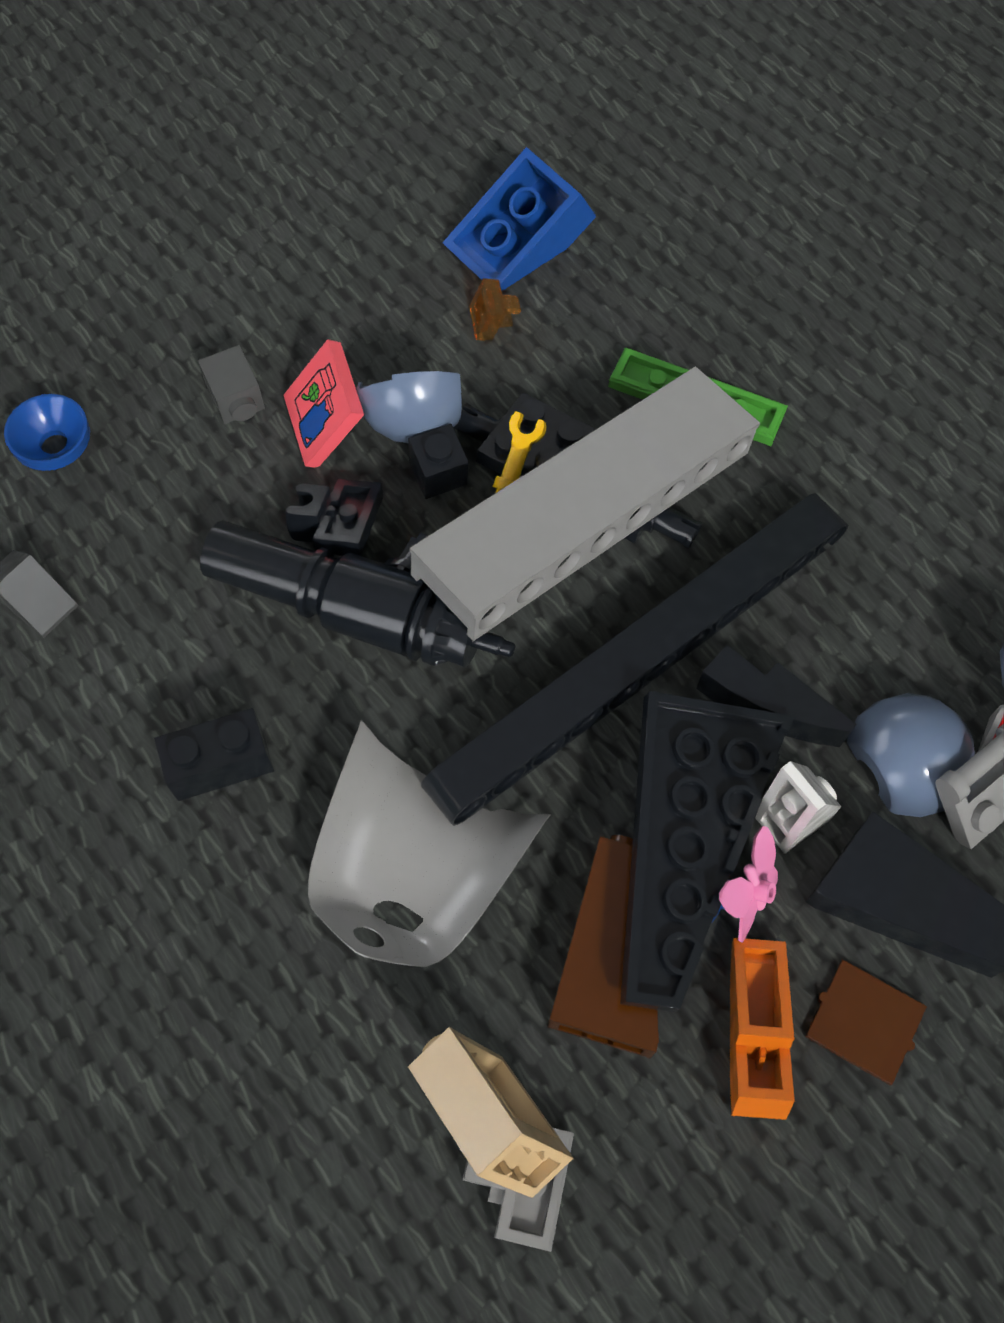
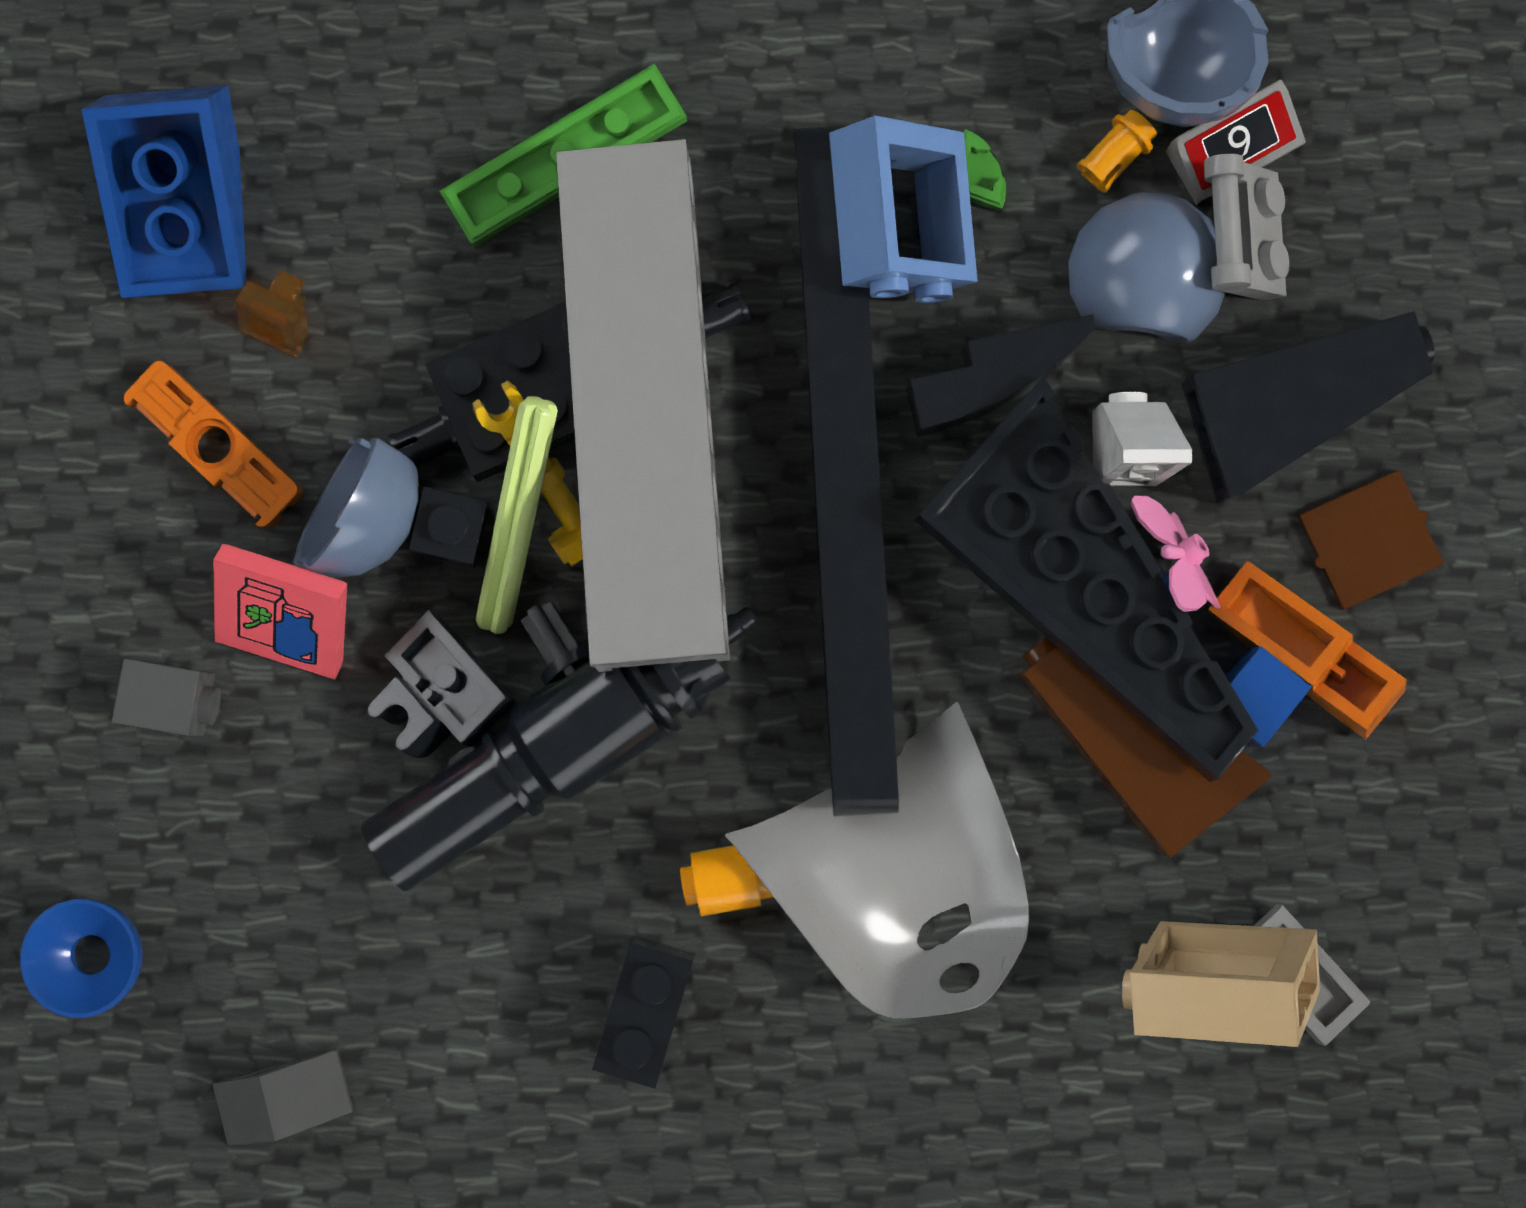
camera: 50 degrees left, 20 degrees up
(327, 746) = (721, 882): none -> light orange brick
(400, 306) = (185, 416): none -> orange piece
(472, 480) = (516, 513): none -> yellowish green axle
(706, 1013) = (1266, 691): none -> blue brick
(861, 557) = (866, 209): none -> medium blue window
(878, 614) = (985, 175): none -> bright green tile
(966, 682) = (1118, 149): none -> light orange pin

